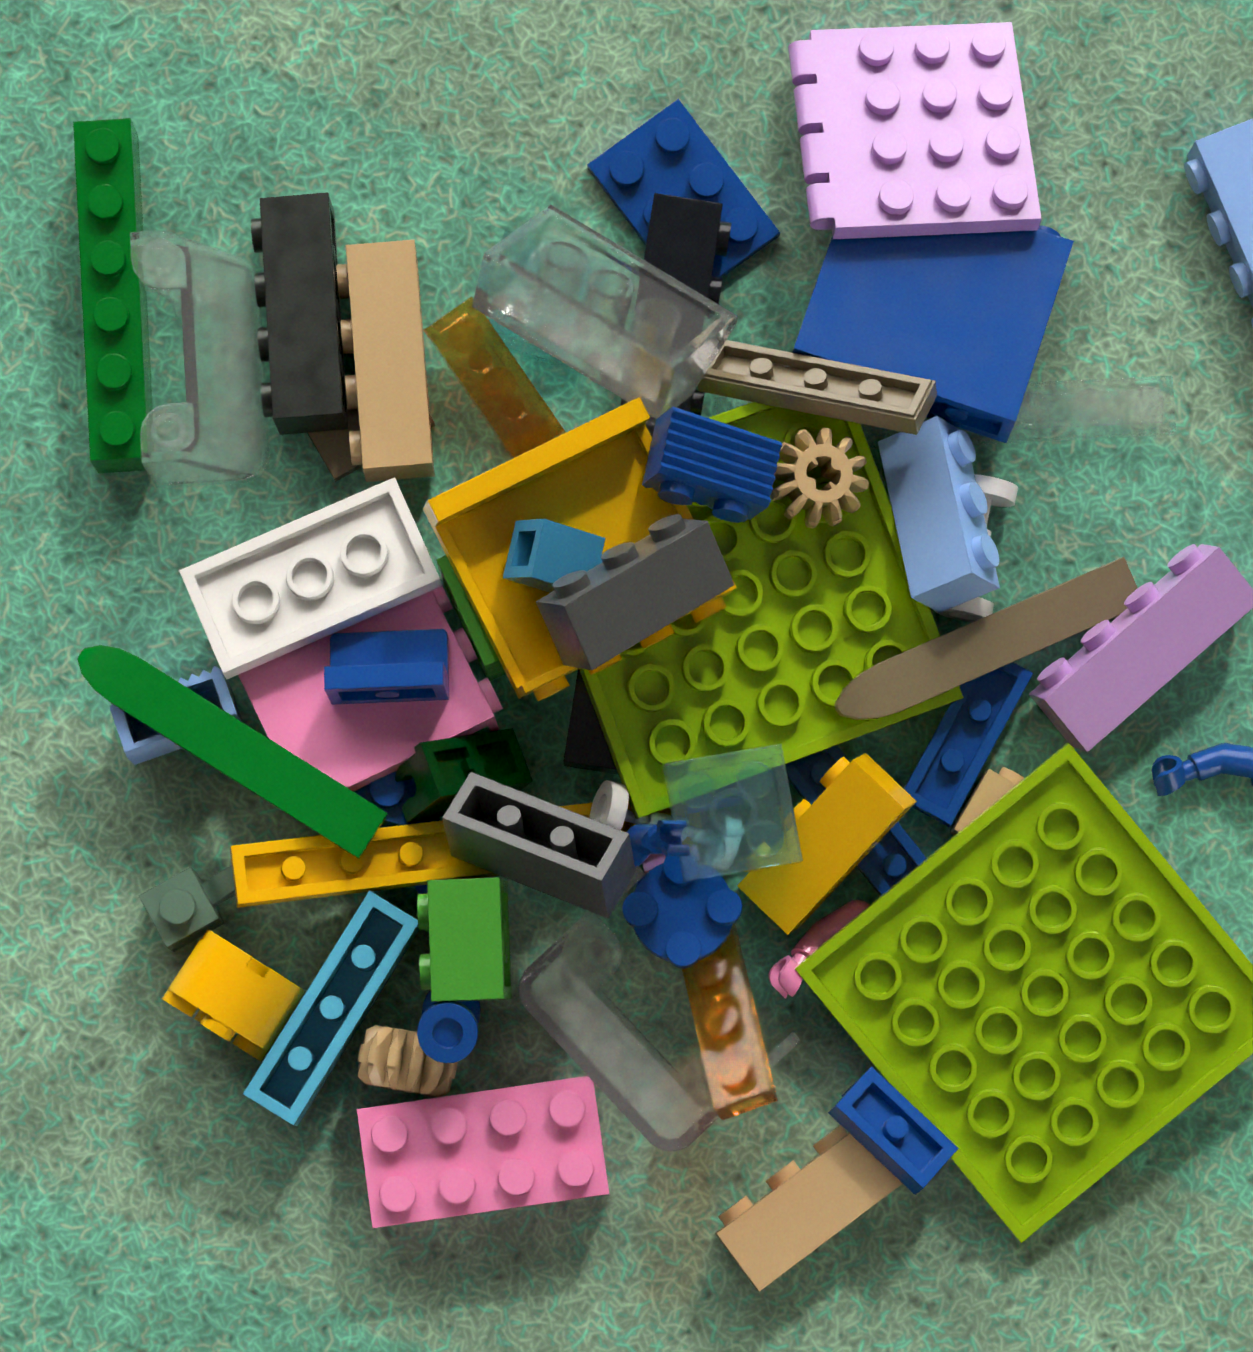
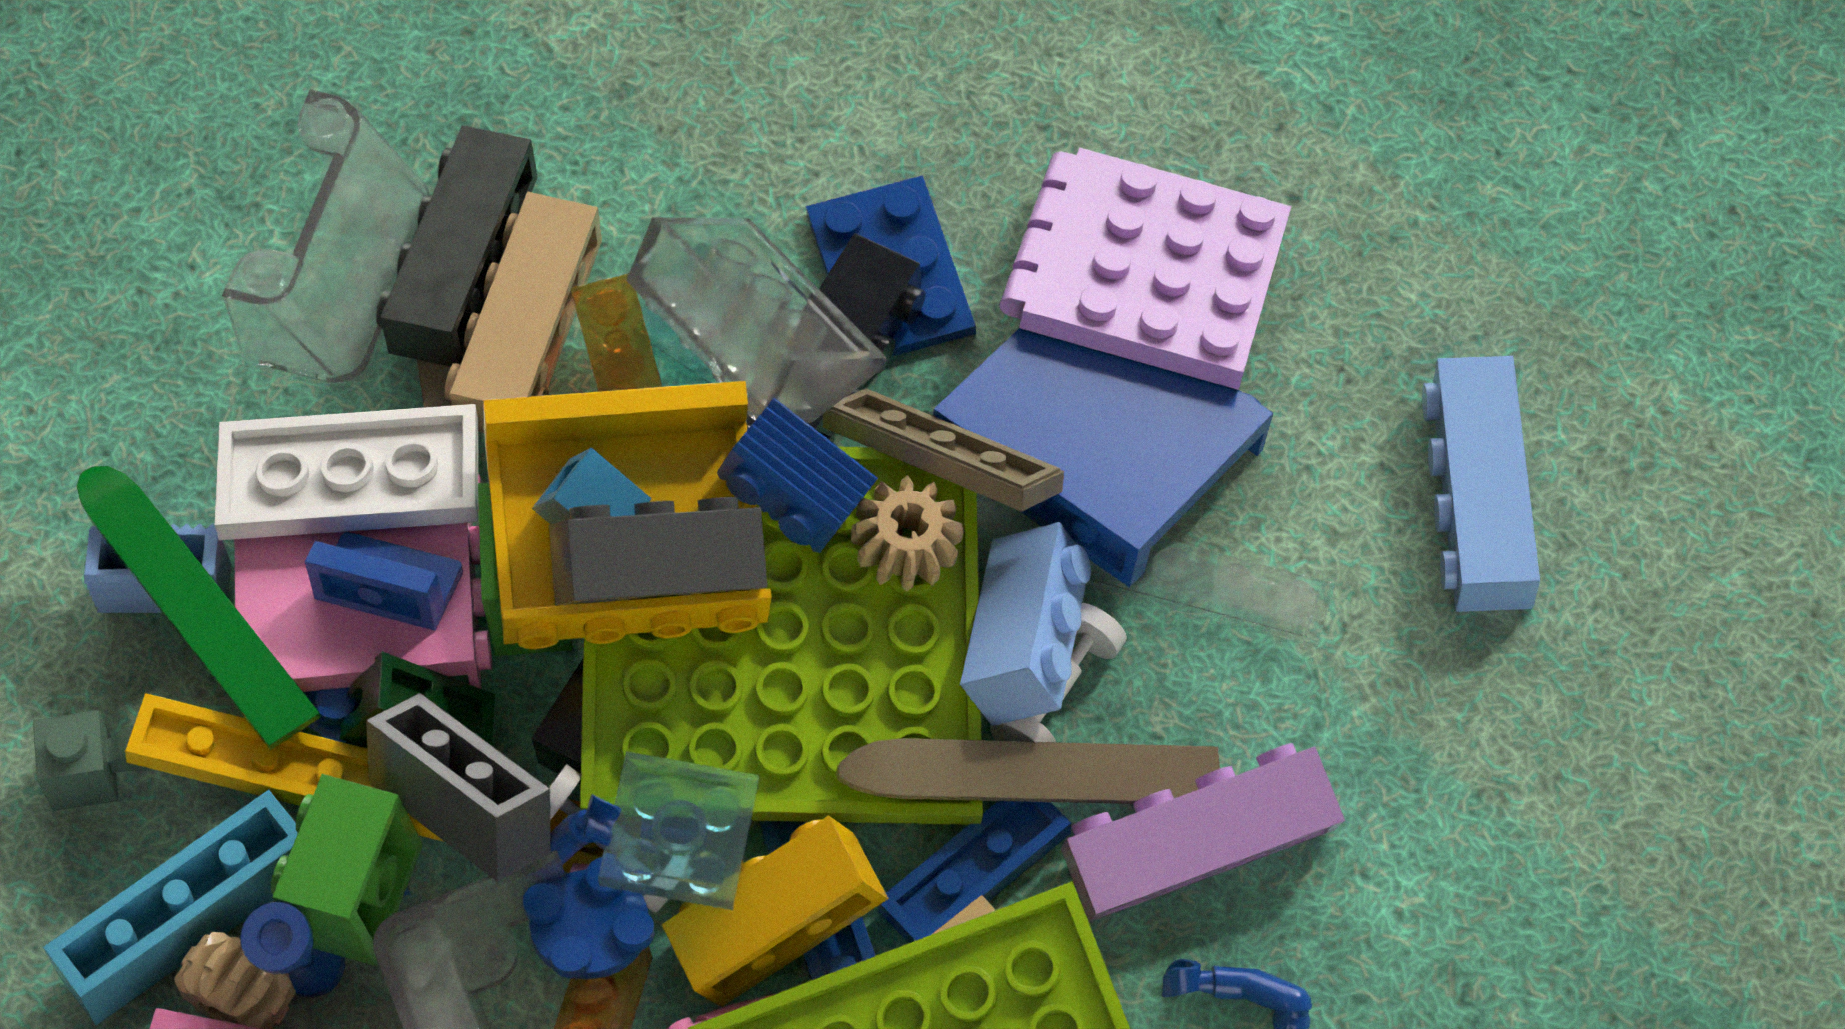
camera: 25 degrees right, 20 degrees down
(112, 293) = (279, 171): green brick -> none
(234, 995) = (81, 848): yellow brick -> none

